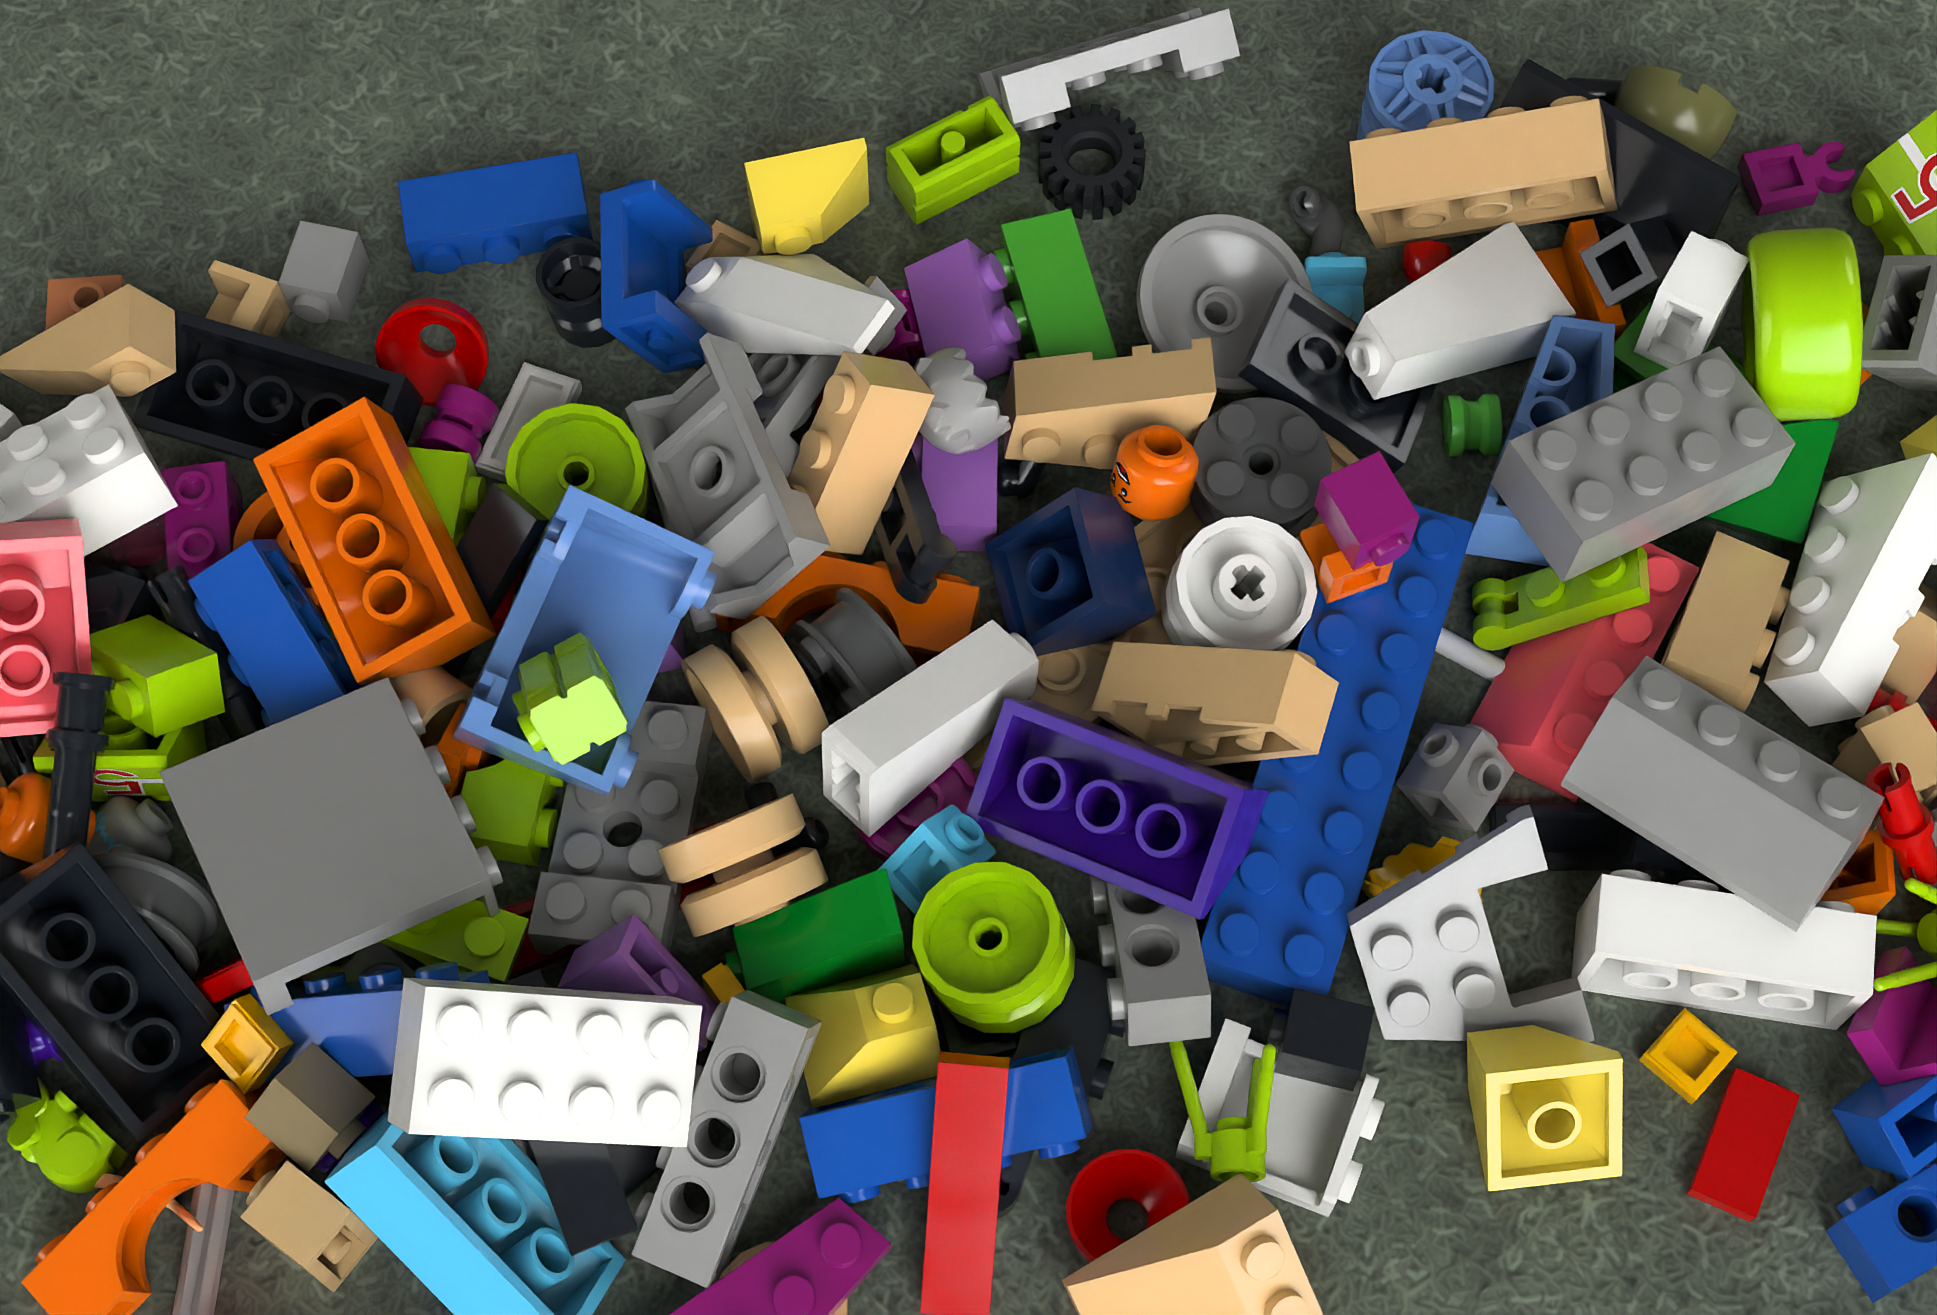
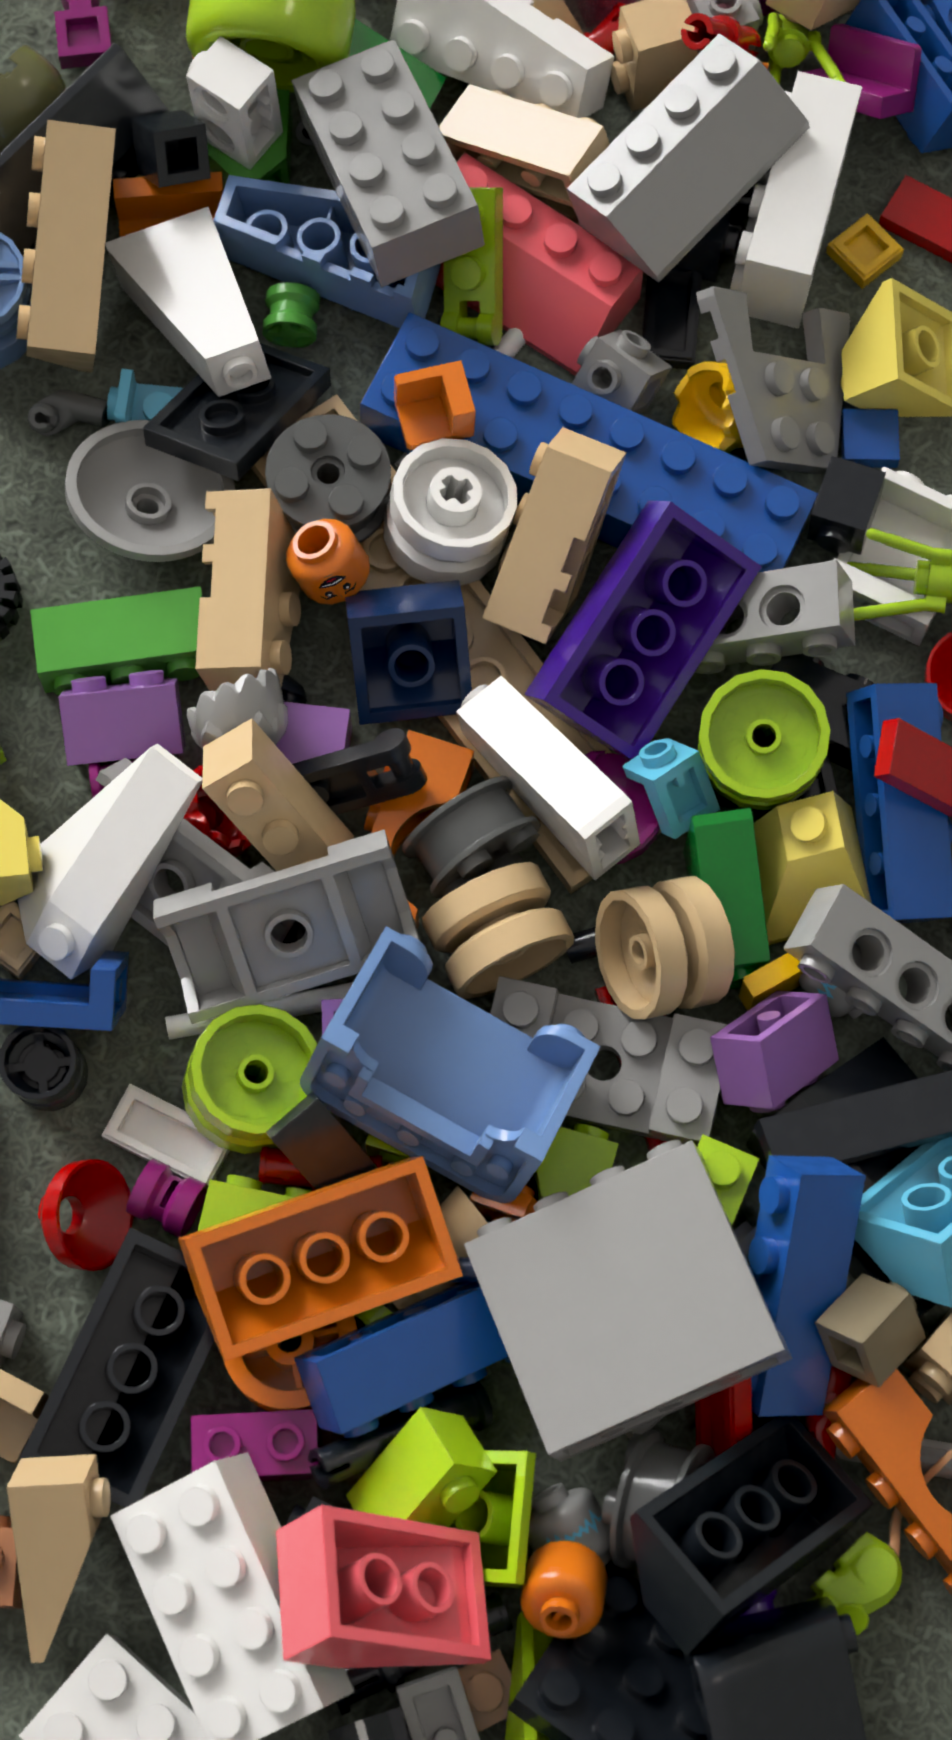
camera: 85 degrees left, 5 degrees up
(76, 742) = (514, 1532): black pin -> none
(247, 1043) = (800, 1392): yellow tile -> none
(544, 1064) = (868, 1103): white brick -> none
(568, 700) = (515, 1066): brick -> none
(1367, 512) = (429, 366): magenta brick -> none
(1423, 257) = (124, 329): red hinge -> none
(1433, 1077) = (870, 437): none -> blue tile

